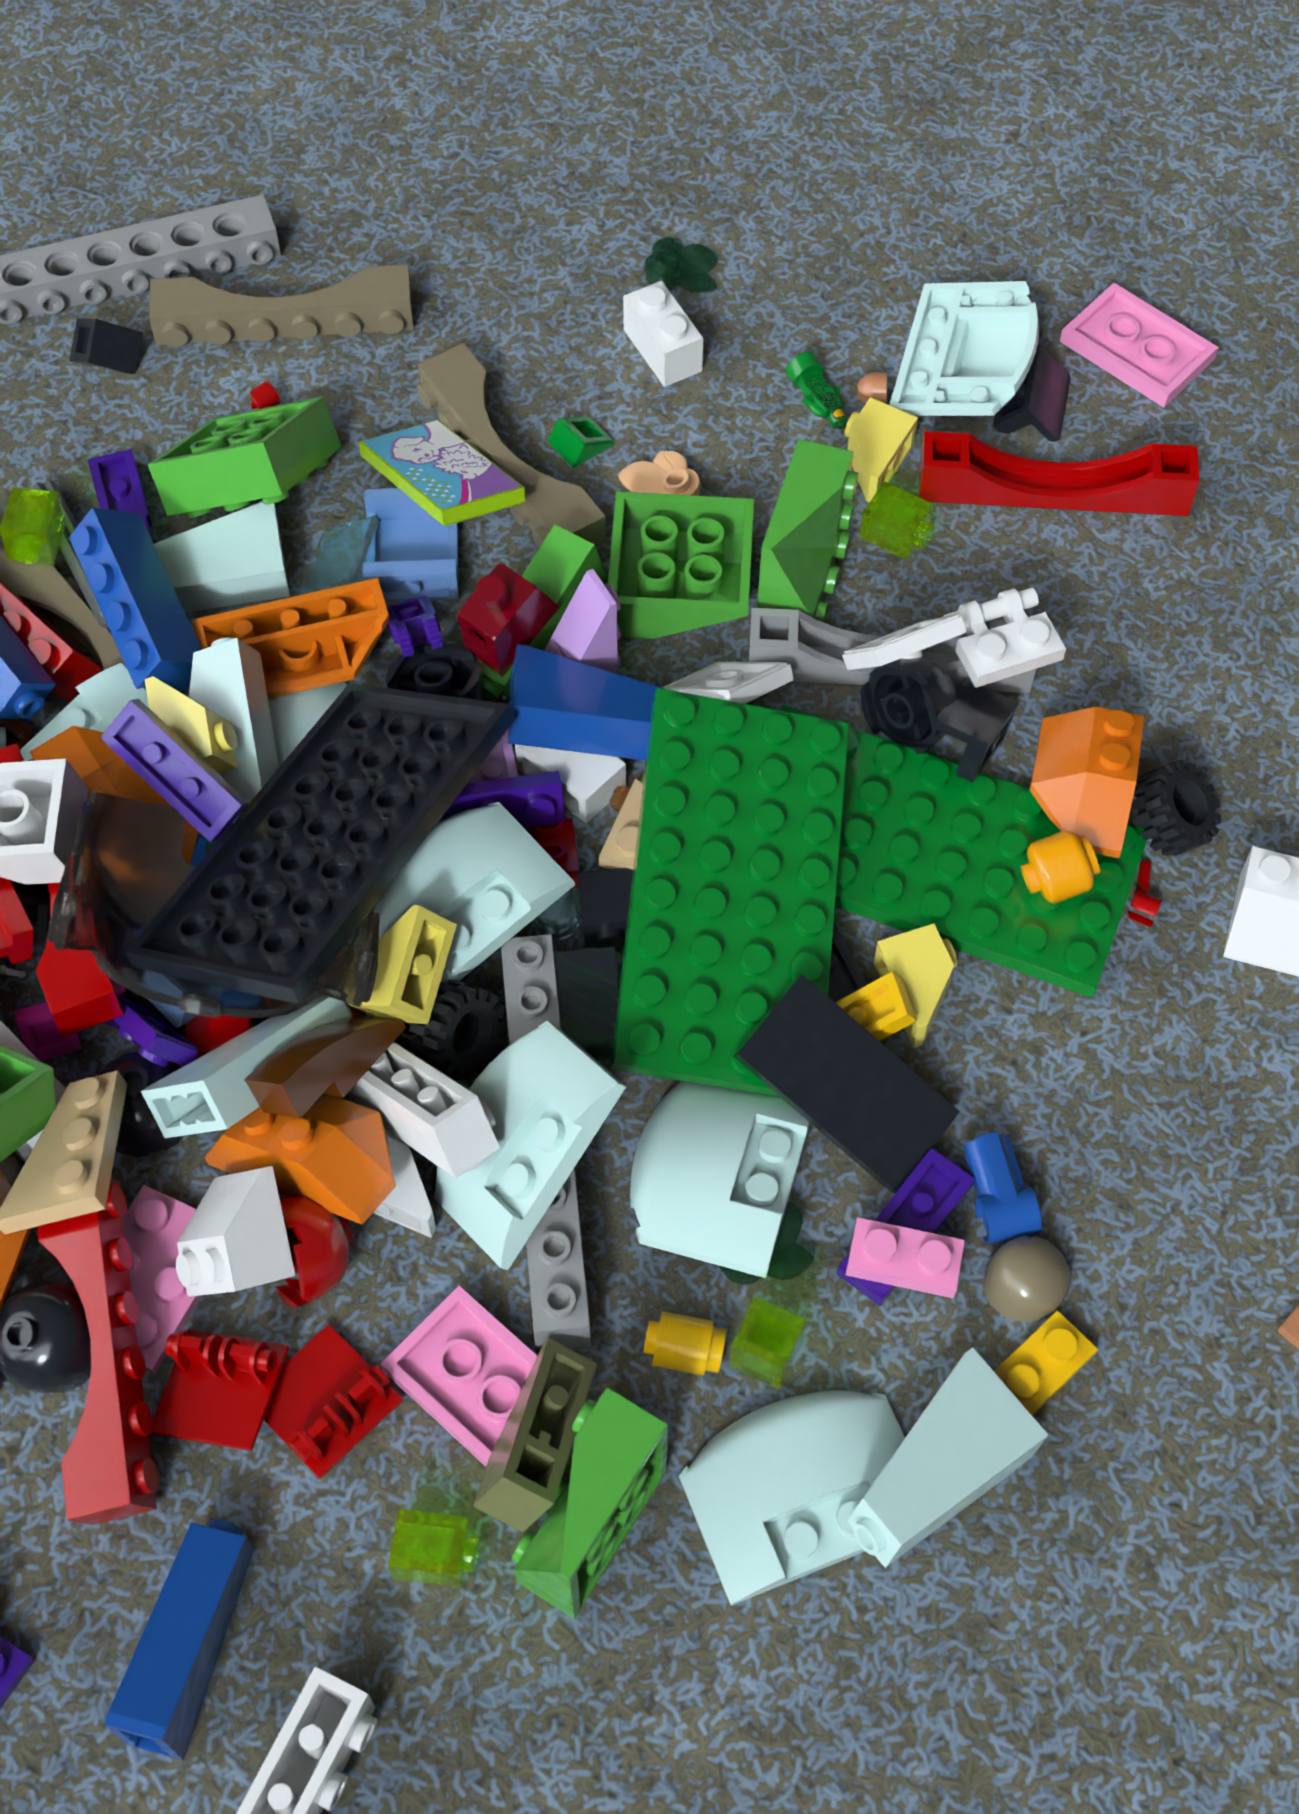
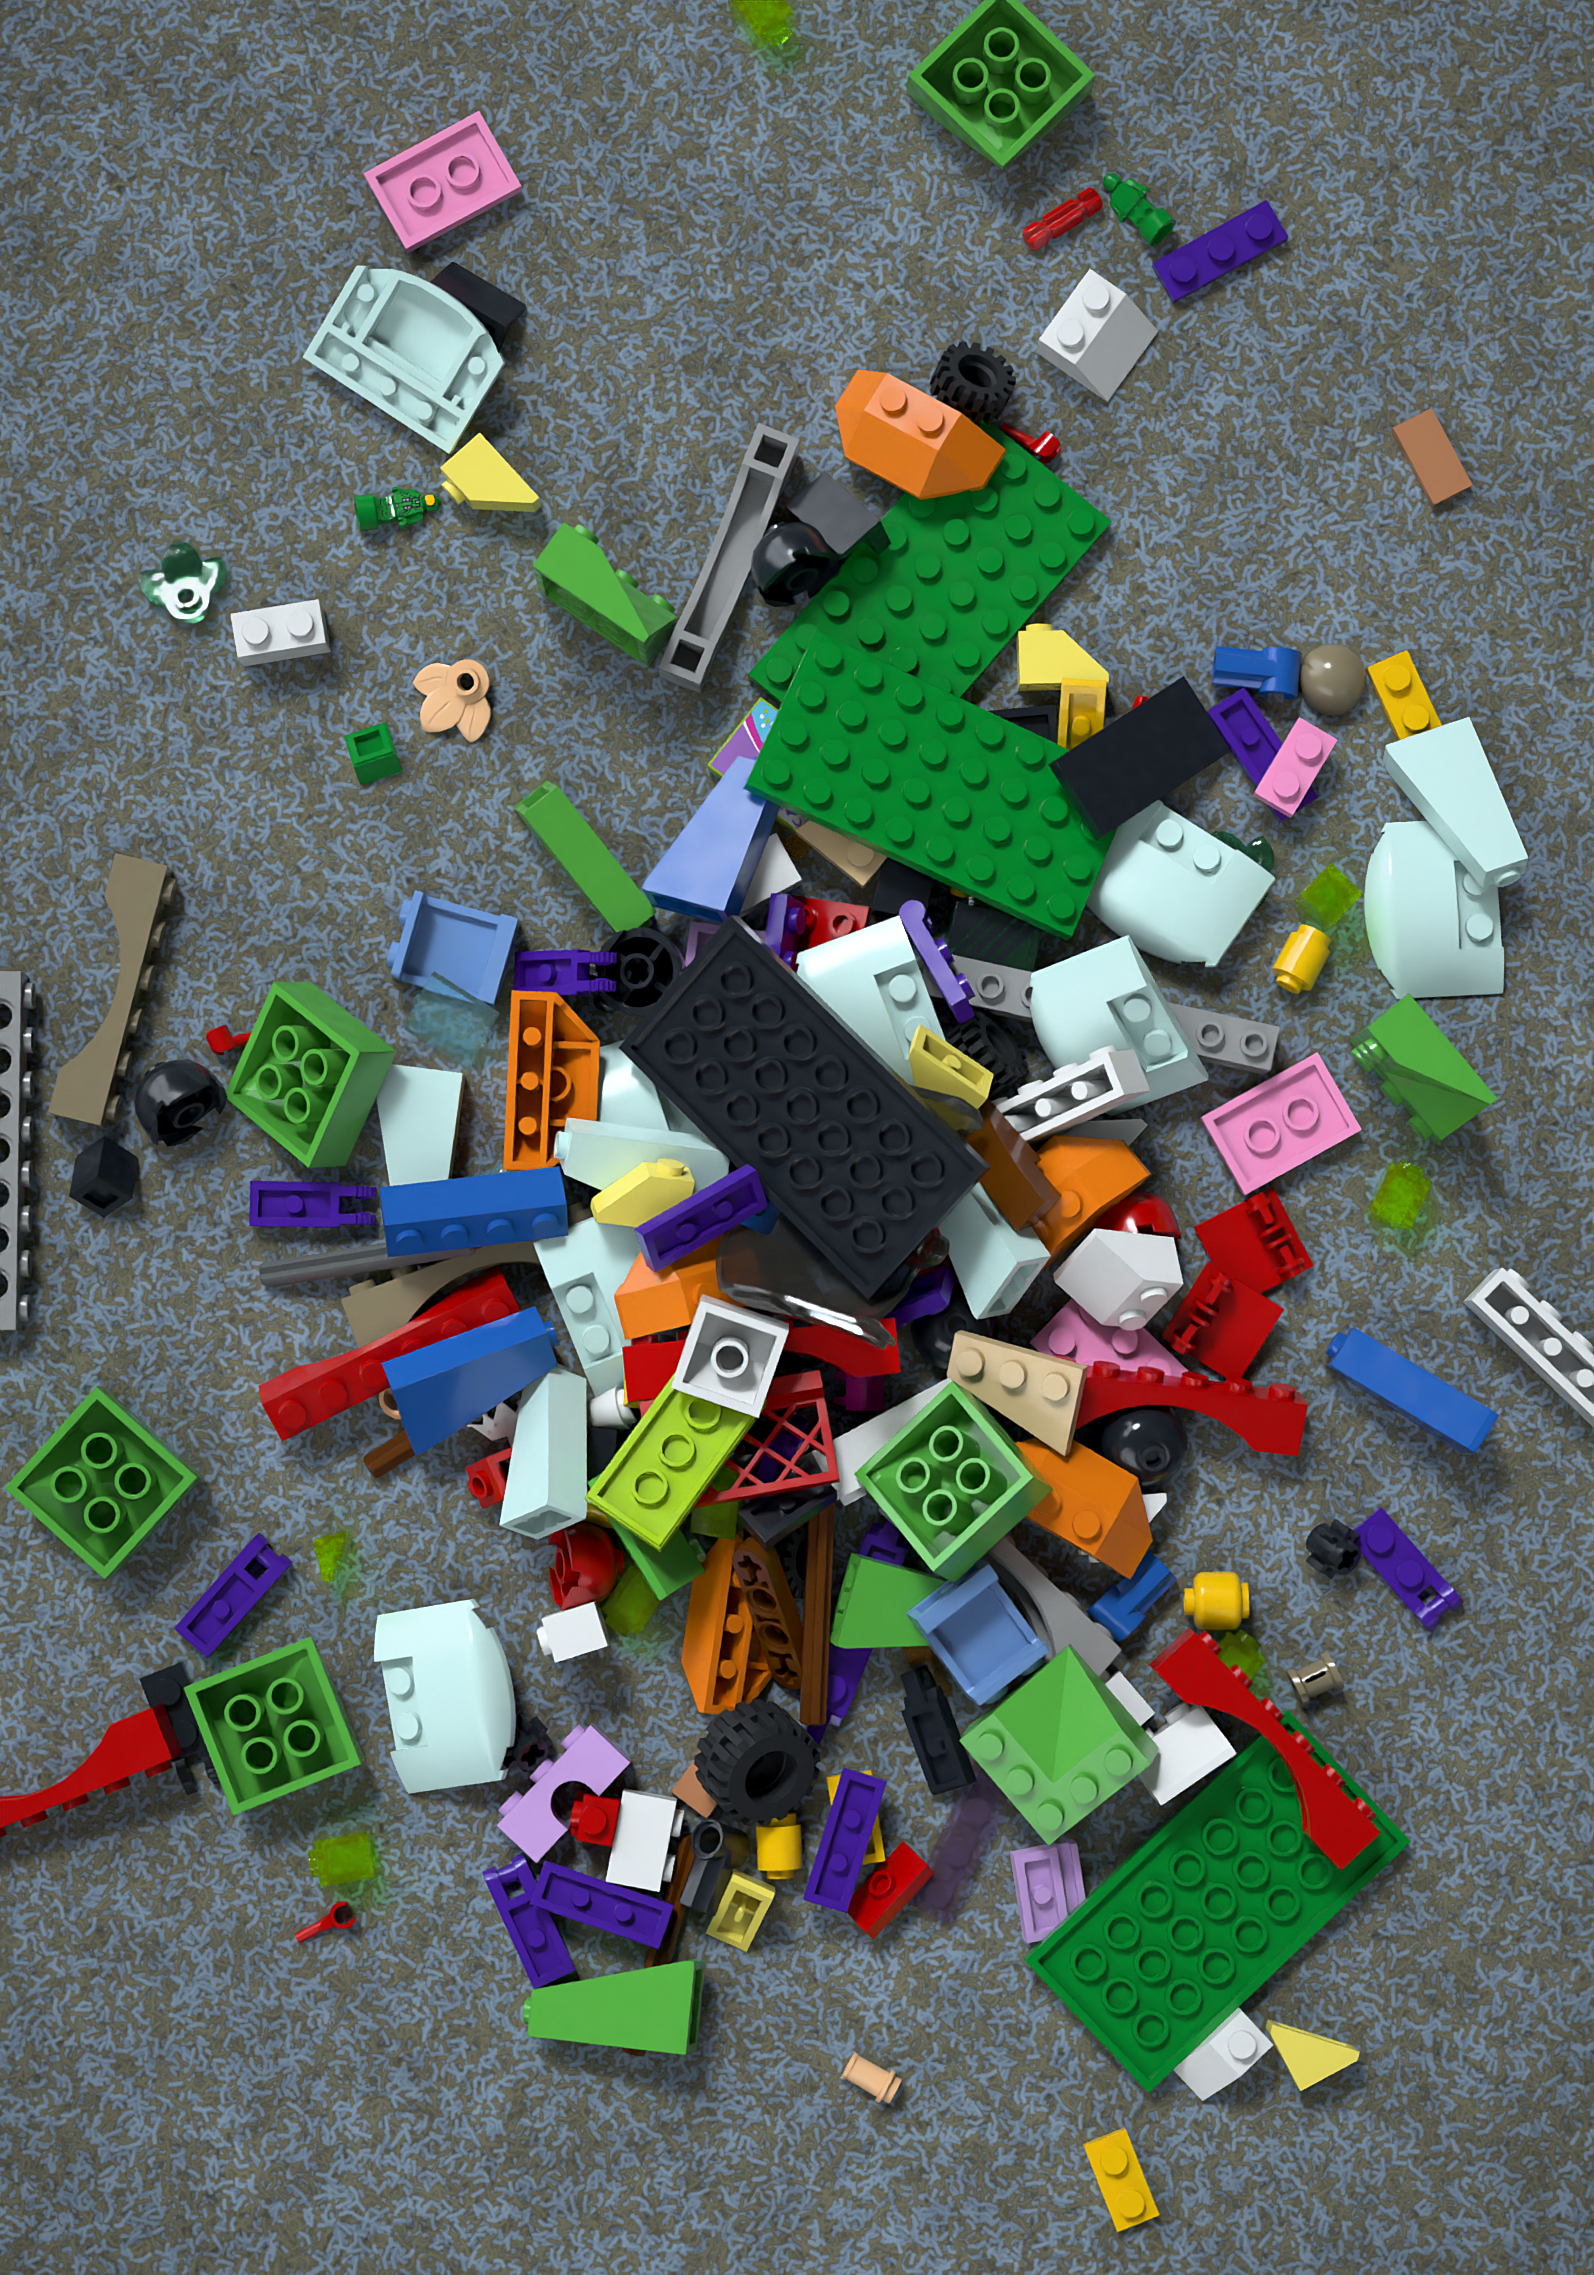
camera: 75 degrees left, 25 degrees up
(32, 526) = (349, 1290): clear neon green brick -> none
(185, 362) = (169, 1101): none -> black cylinder
(442, 472) = (396, 897): tile -> none
(459, 392) = (466, 803): dark tan arch -> none
(501, 615) = (610, 886): dark red torso -> none
(533, 927) = (936, 959): none -> plate
(536, 1439) = (1351, 1093): olive slope -> none
(590, 626) = (645, 826): lavender slope -> none
(679, 561) = (573, 712): bright green slope -> none
(735, 680) = (725, 718): white plate -> none
(873, 386) = (412, 455): nougat hinge -> none
(897, 521) = (582, 495): clear neon green brick -> none
(904, 643) = (749, 550): white plate -> none
(1010, 648) = (785, 460): white plate -> none
(1060, 866) = (1006, 507): light orange head -> none
(1144, 481) = (599, 298): red arch -> none

